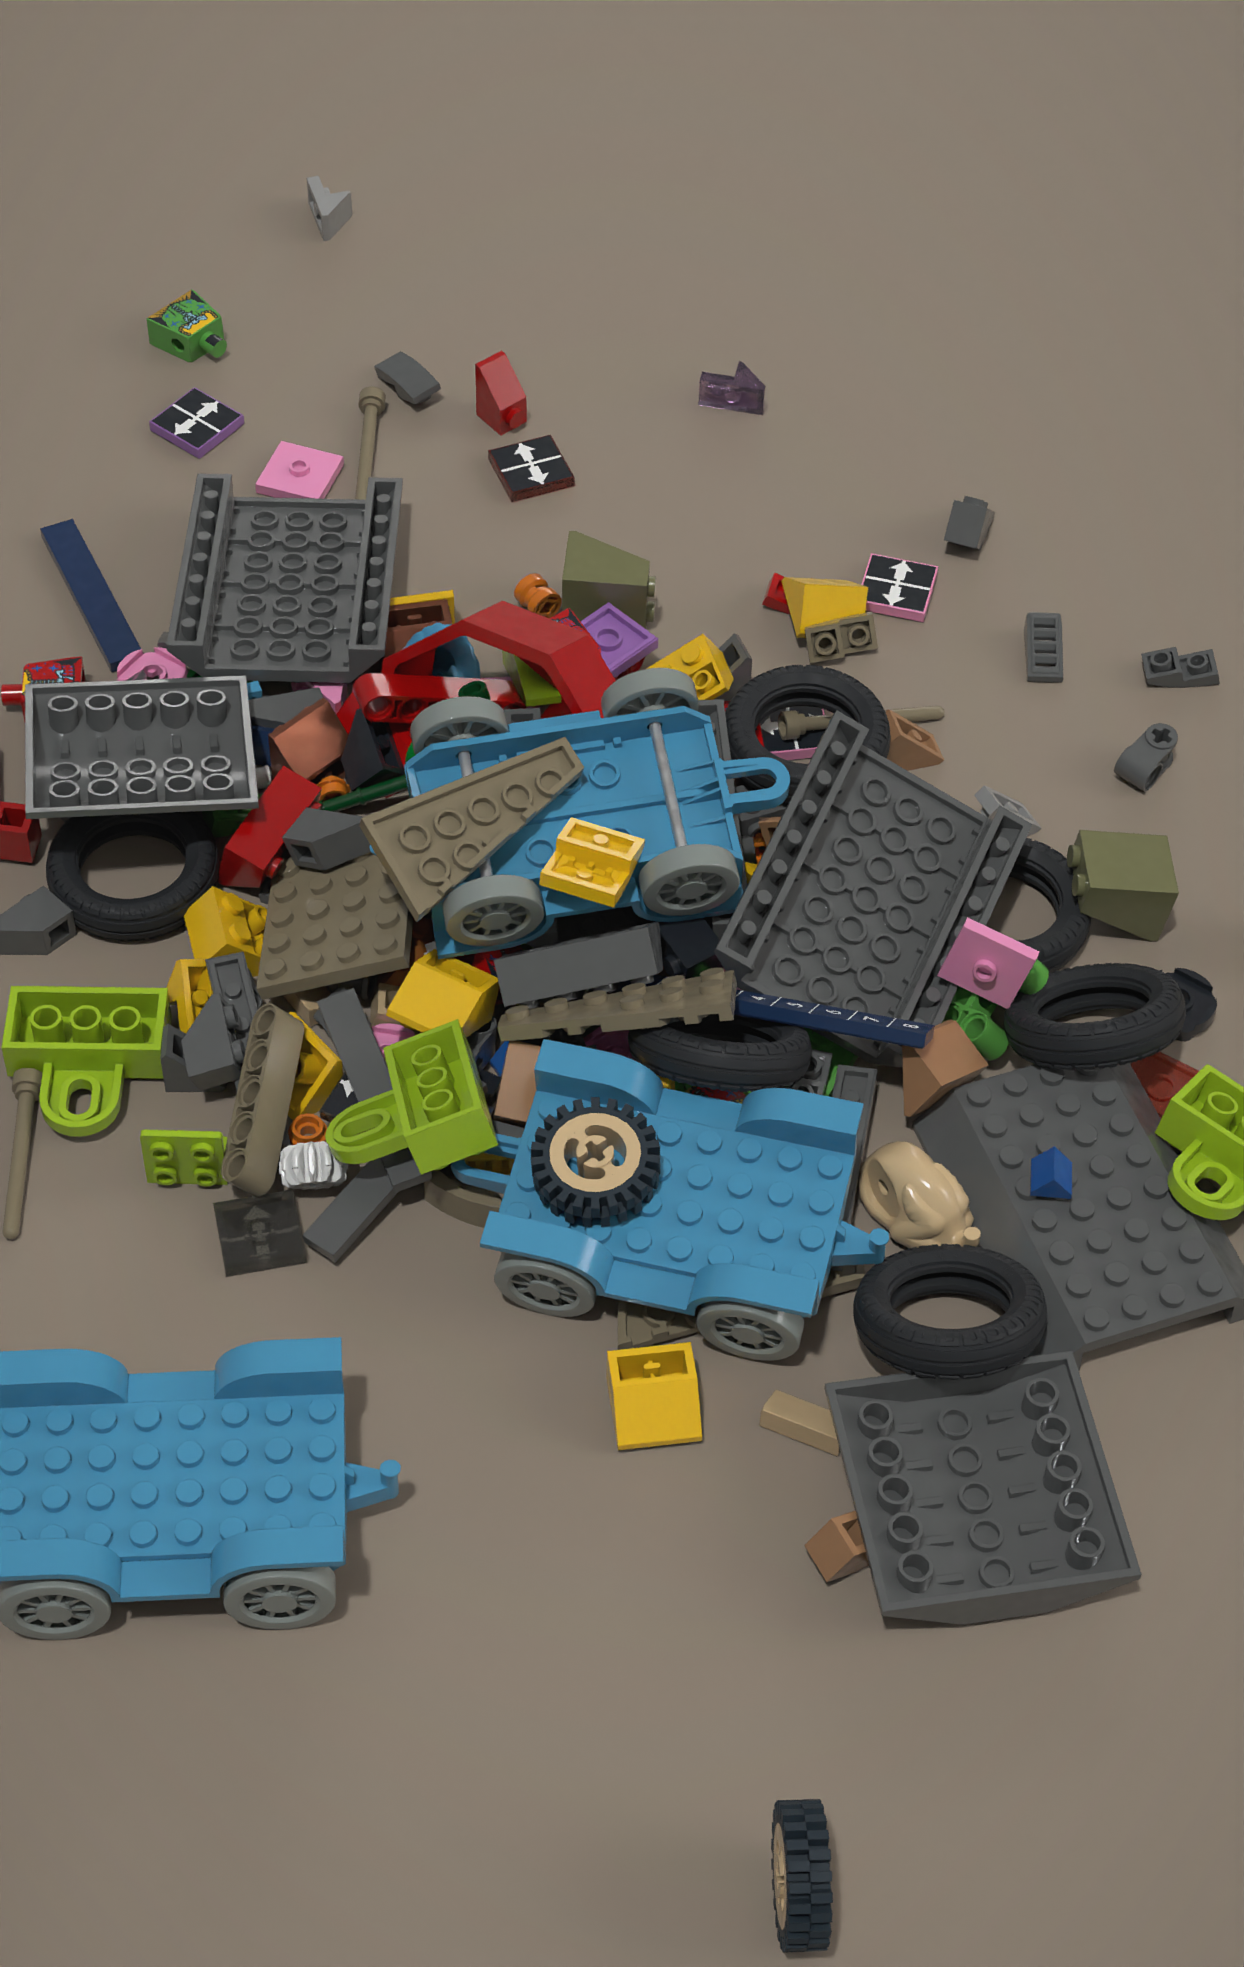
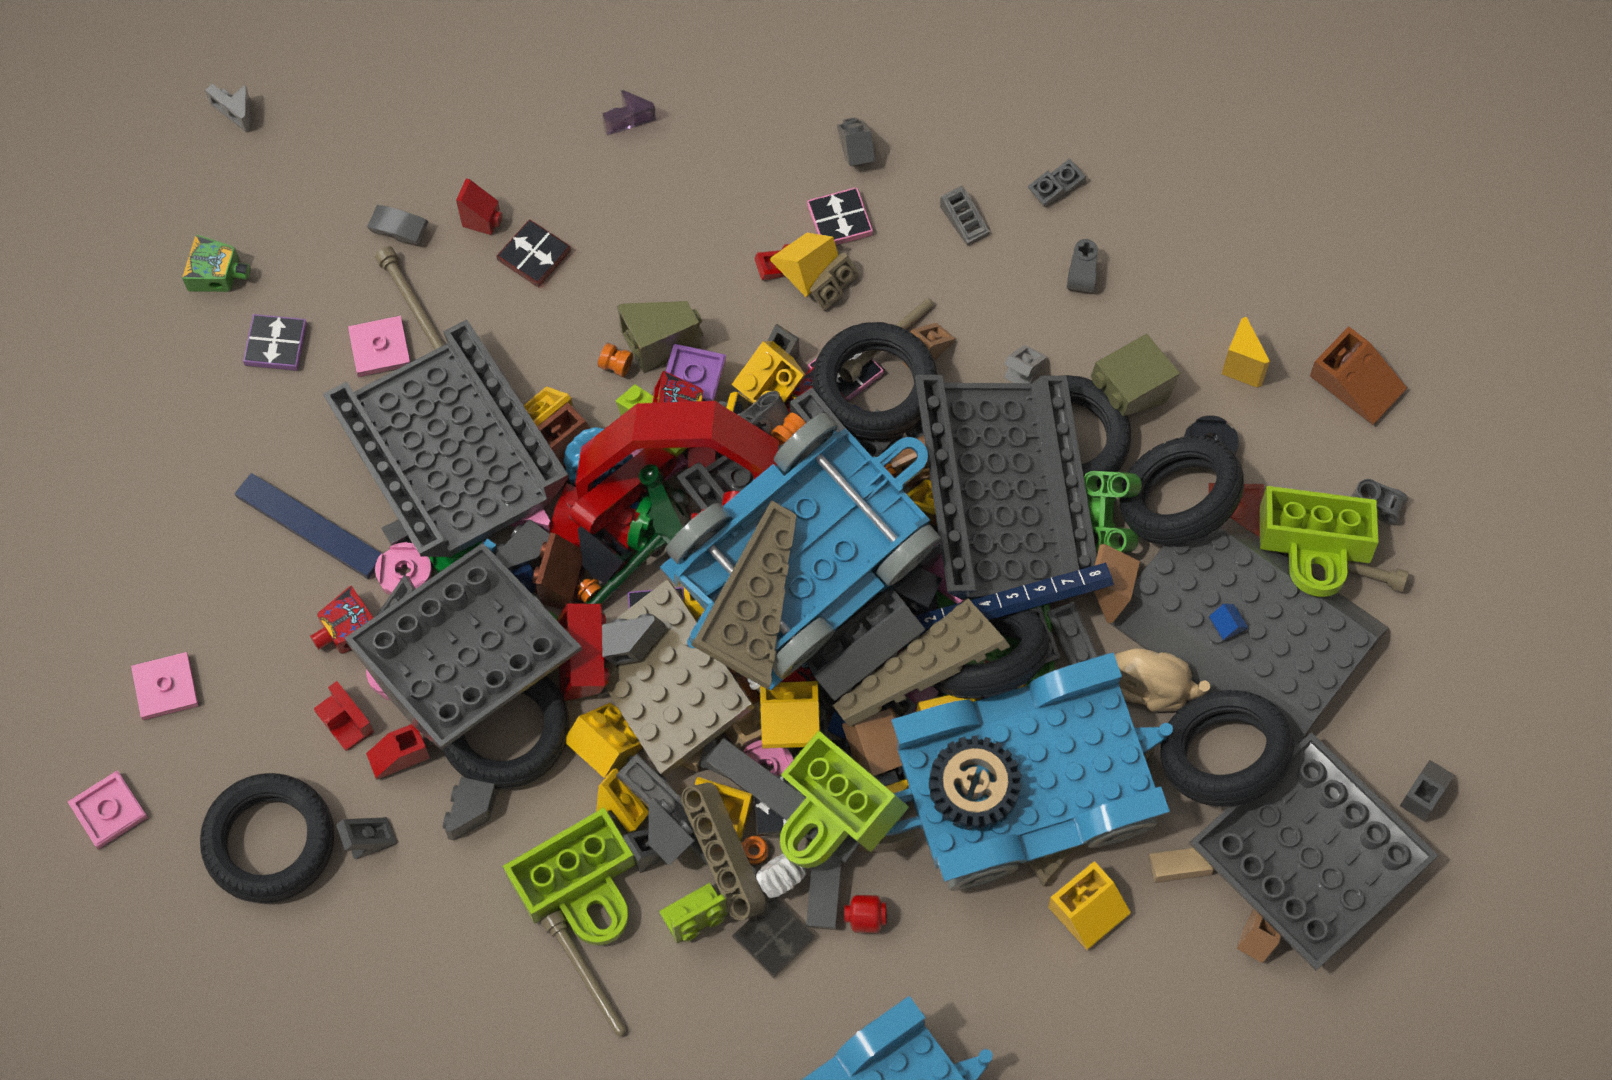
camera: 30 degrees left, 15 degrees up
(381, 1261) = (866, 913): none -> red head
(592, 862) = (849, 583): yellow slope -> none
(988, 963) = (1109, 498): bright pink plate -> none
(1185, 1505) = (1426, 790): none -> dark grey slope

